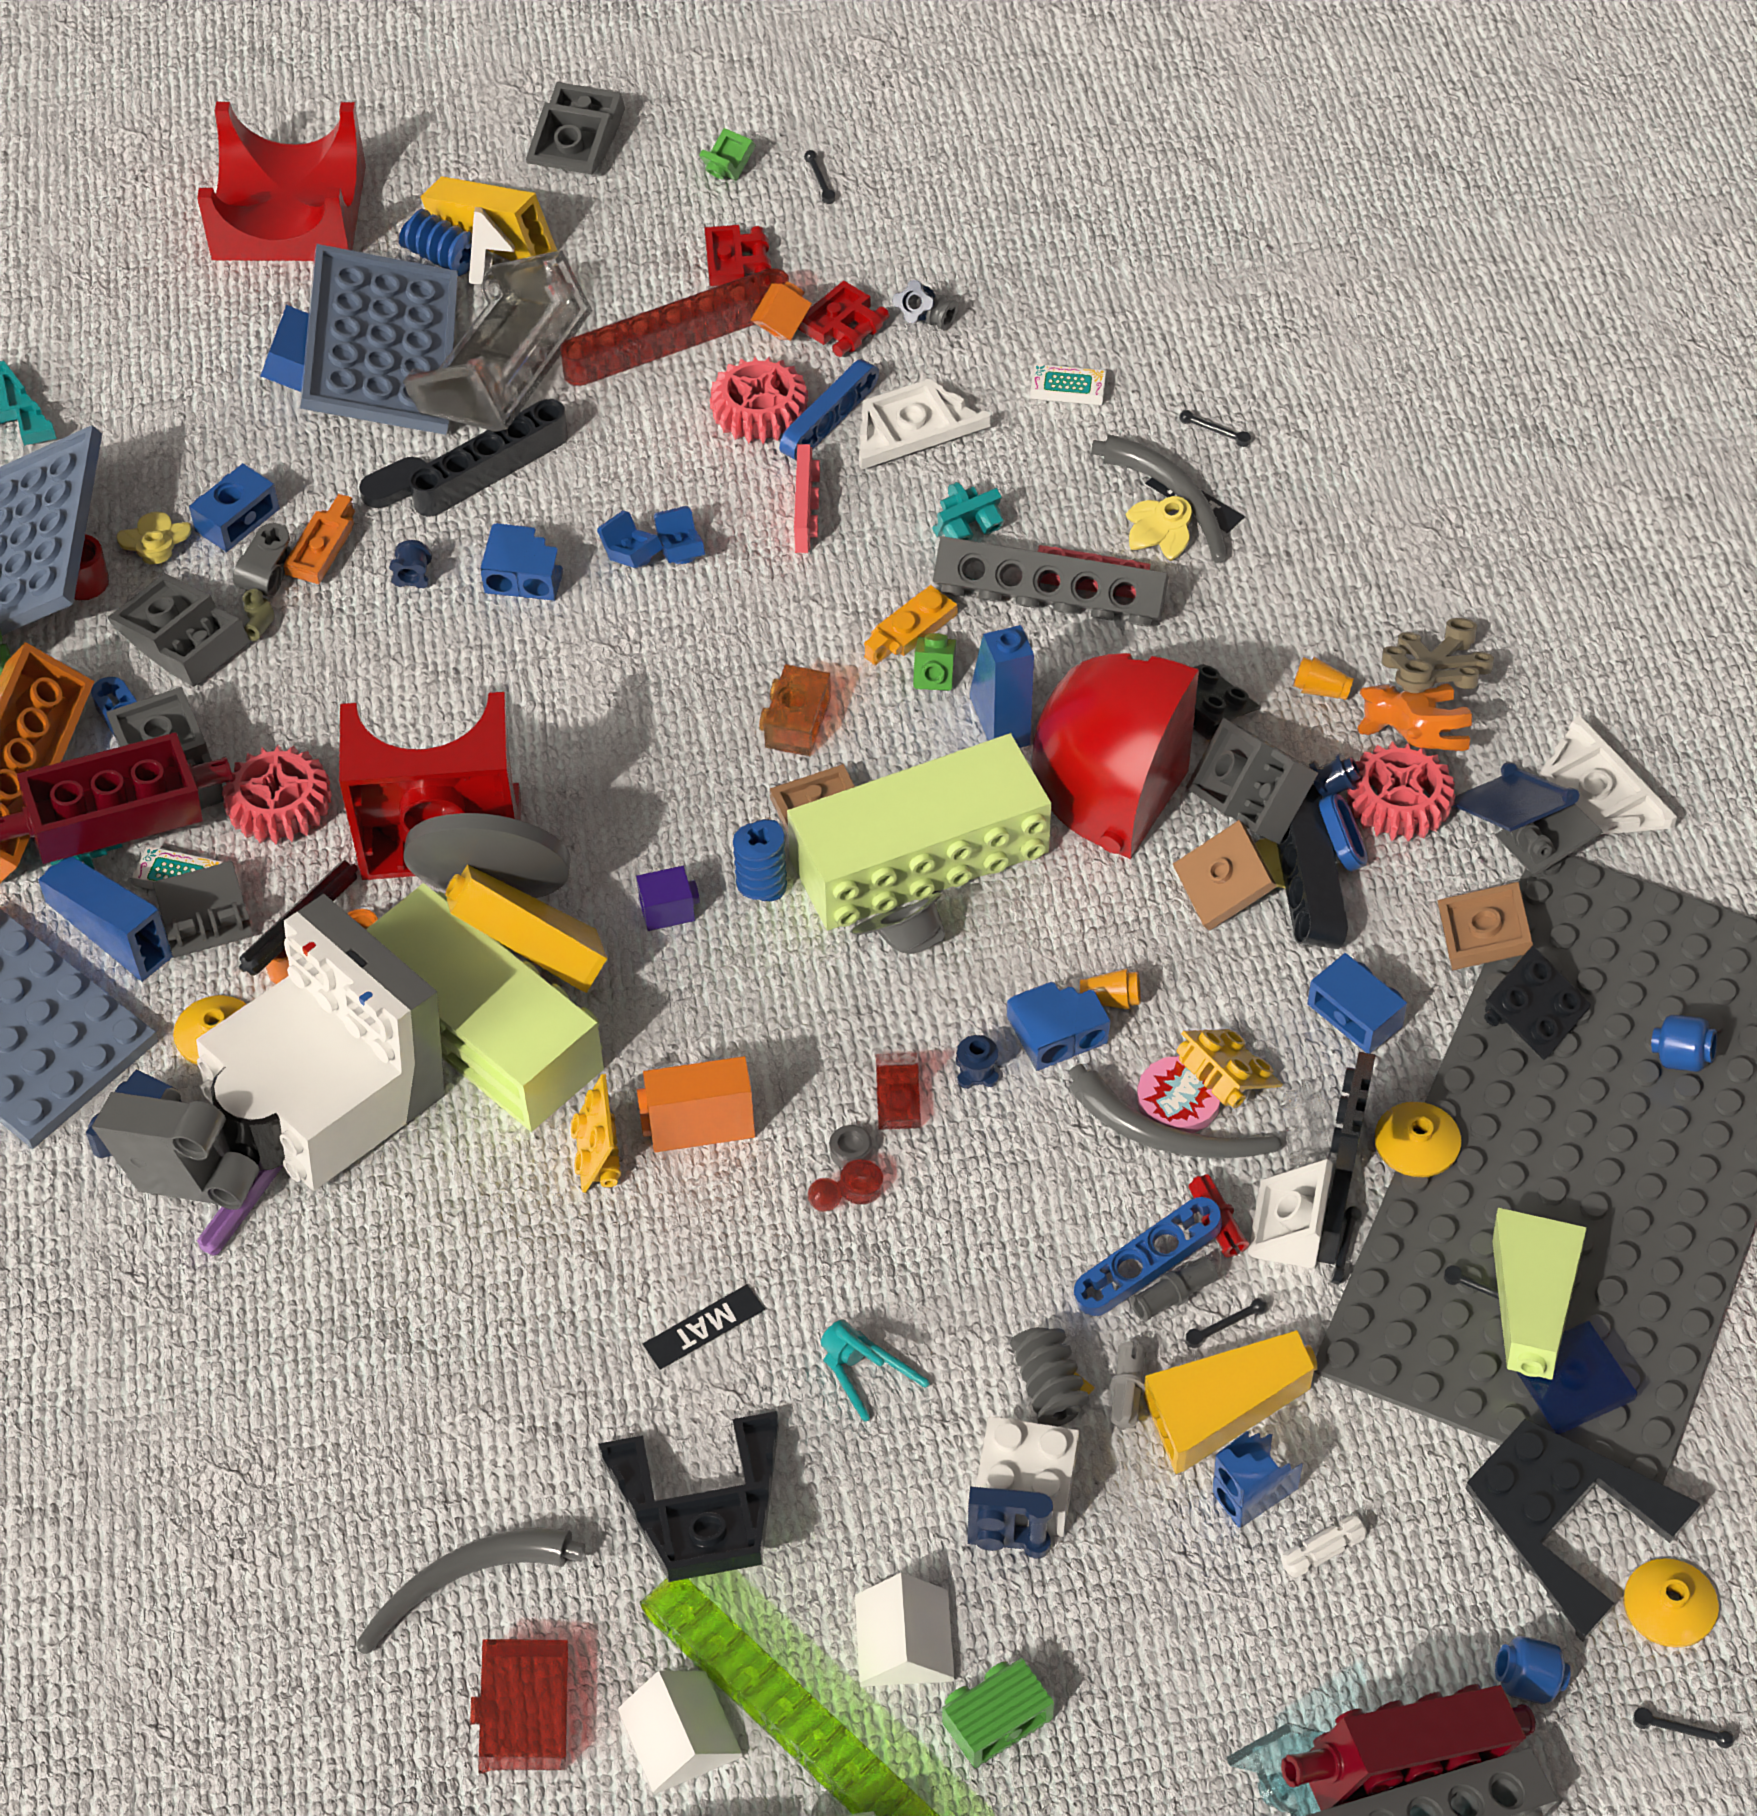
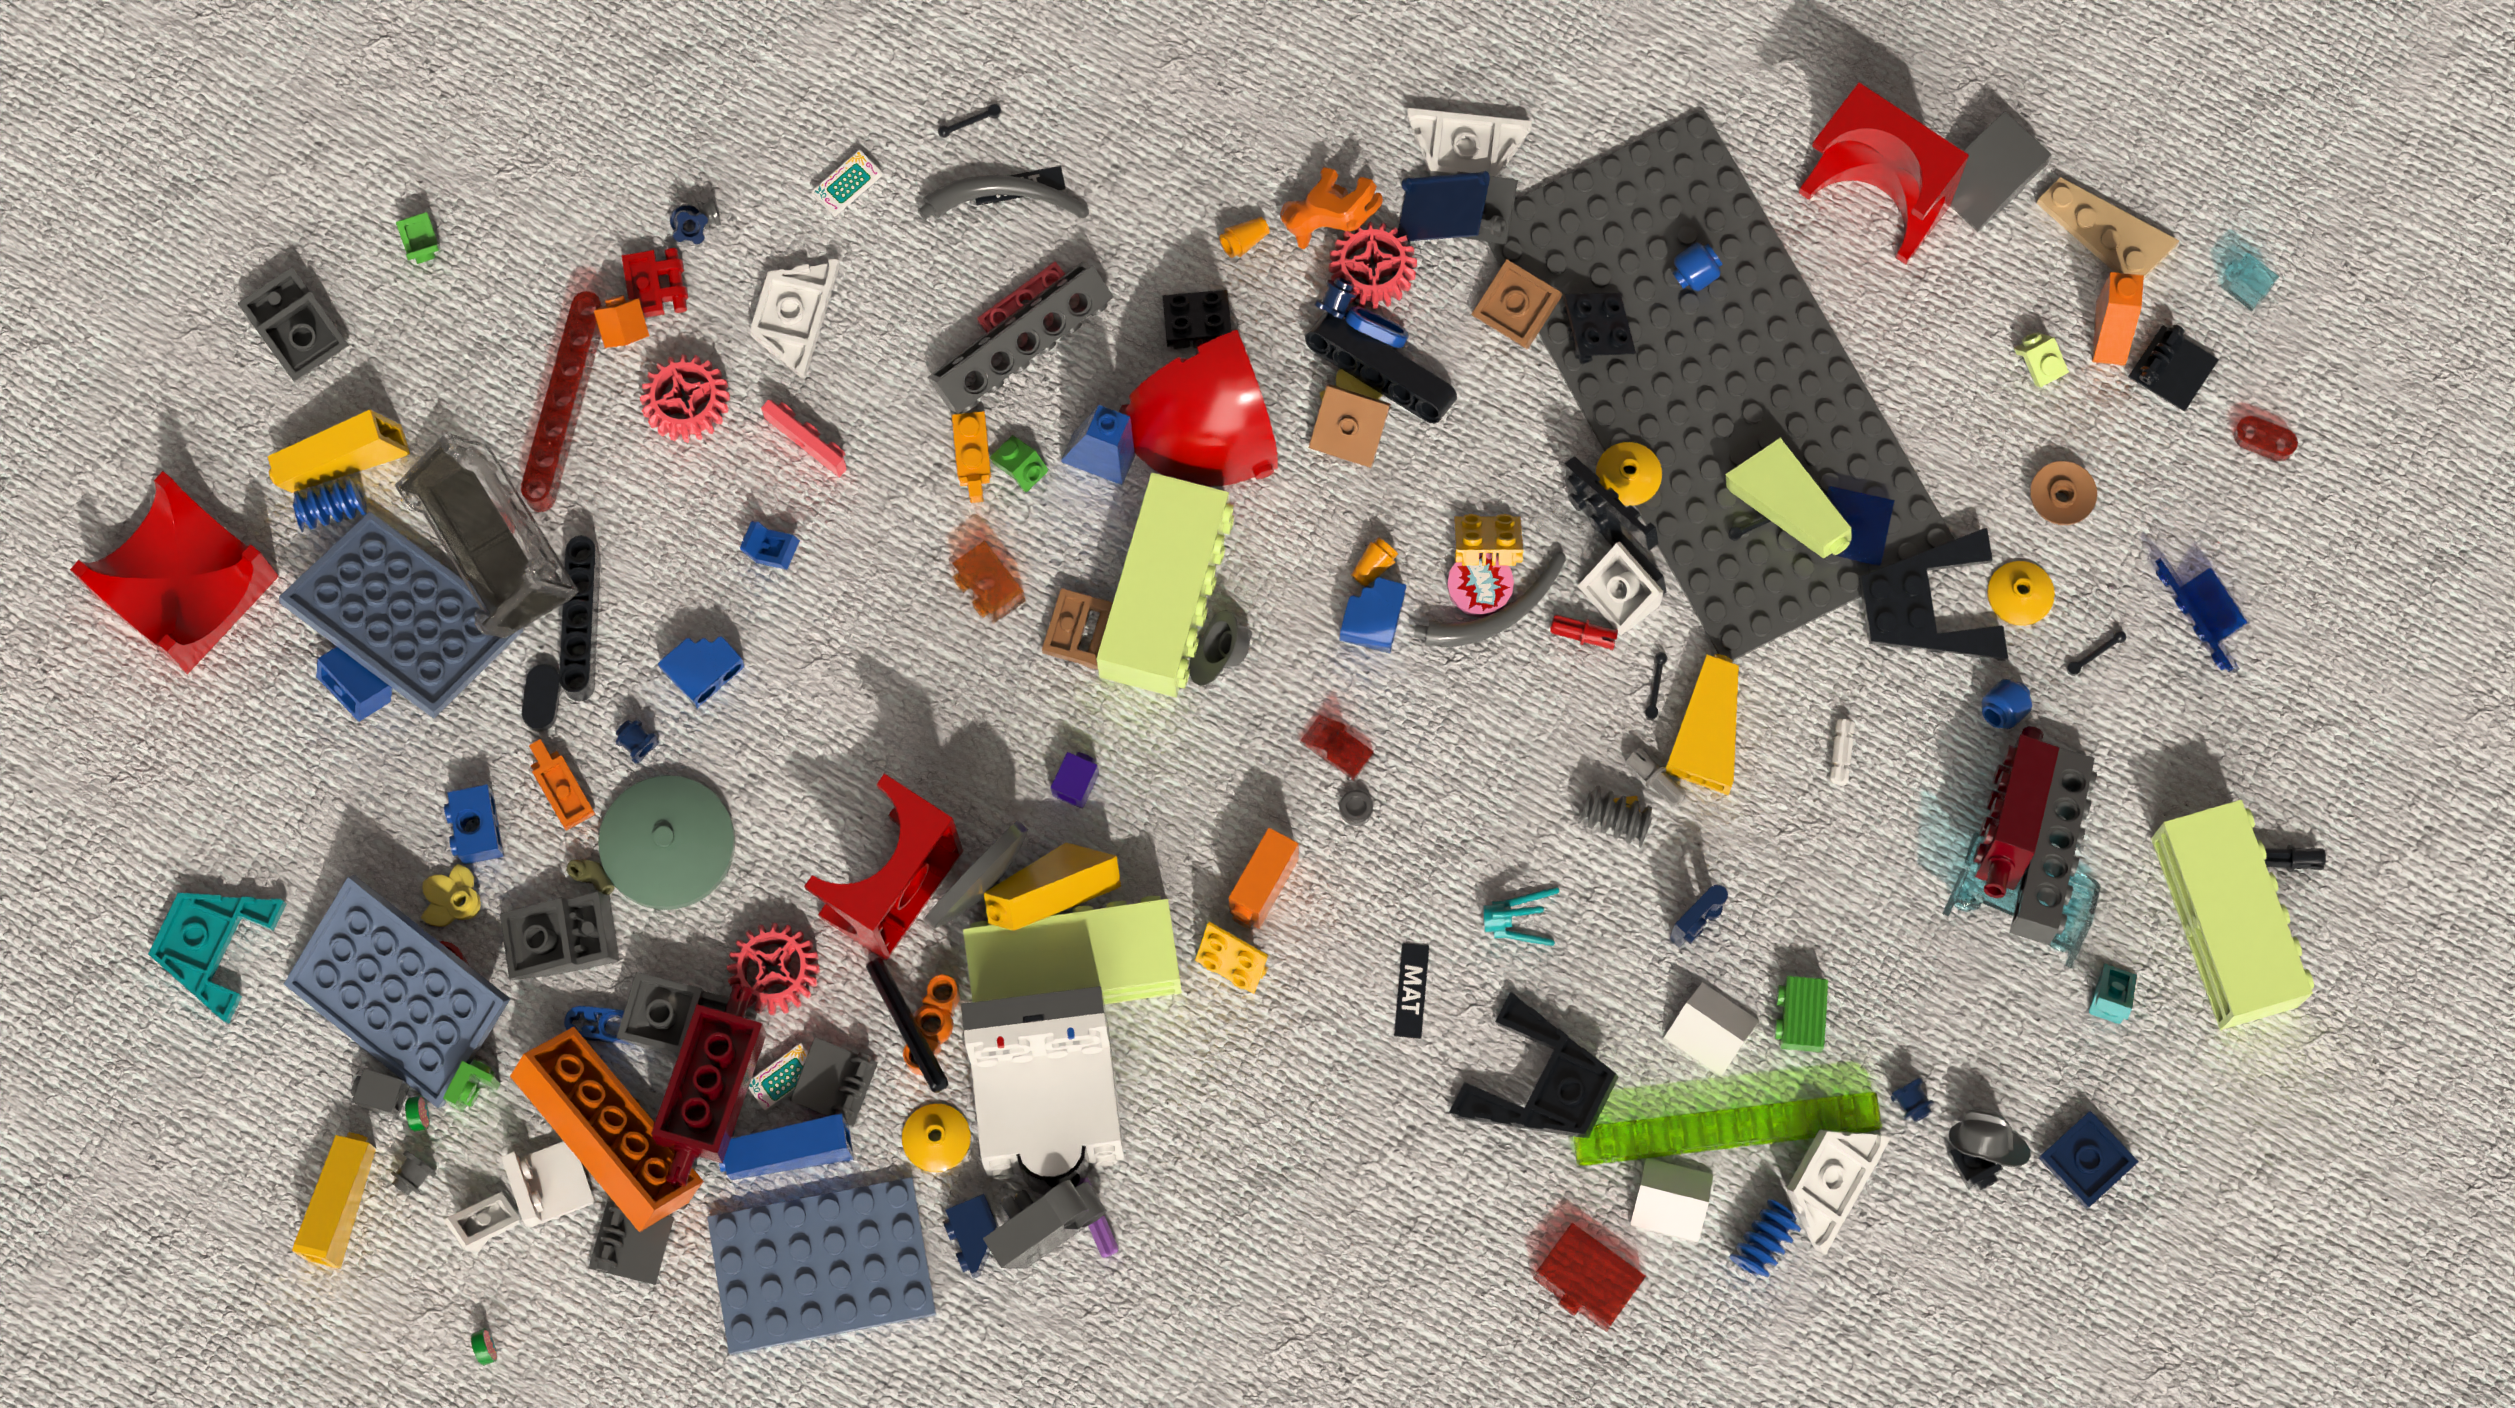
camera: 50 degrees left, 20 degrees up
(264, 560) = (550, 841): dark grey piece -> none
(336, 648) = (666, 842): none -> sand green dish
(485, 236) = (372, 474): white slope -> none
(507, 1547) = (1475, 1217): dark grey animal -> none
(626, 543) = (745, 582): blue bracket -> none
(725, 251) = (521, 316): red plate -> none
(760, 860) = (1102, 688): blue piece -> none
(825, 1193) = (1382, 848): clear red plate -> none
(828, 195) = (516, 198): black hinge -> none
(830, 407) = (735, 358): blue beam -> none
(967, 507) = (916, 330): teal hips -> none
(976, 1060) = (1362, 693): dark blue brick -> none
(1032, 1460) = (1669, 881): white brick -> none
(1143, 1250) = (1586, 696): blue beam -> none
(1155, 526) = (1029, 231): light yellow plate -> none
(1174, 1288) = (1613, 698): dark grey pin -> none
(1249, 1480) = (1778, 759): blue piece -> none
(1251, 781) = (1299, 351): dark grey slope -> none
(1353, 1215) = (1676, 595): black hinge -> none
(1357, 1003) = (1509, 427): blue brick -> none
(1423, 673) = (1309, 183): dark tan plant -> none

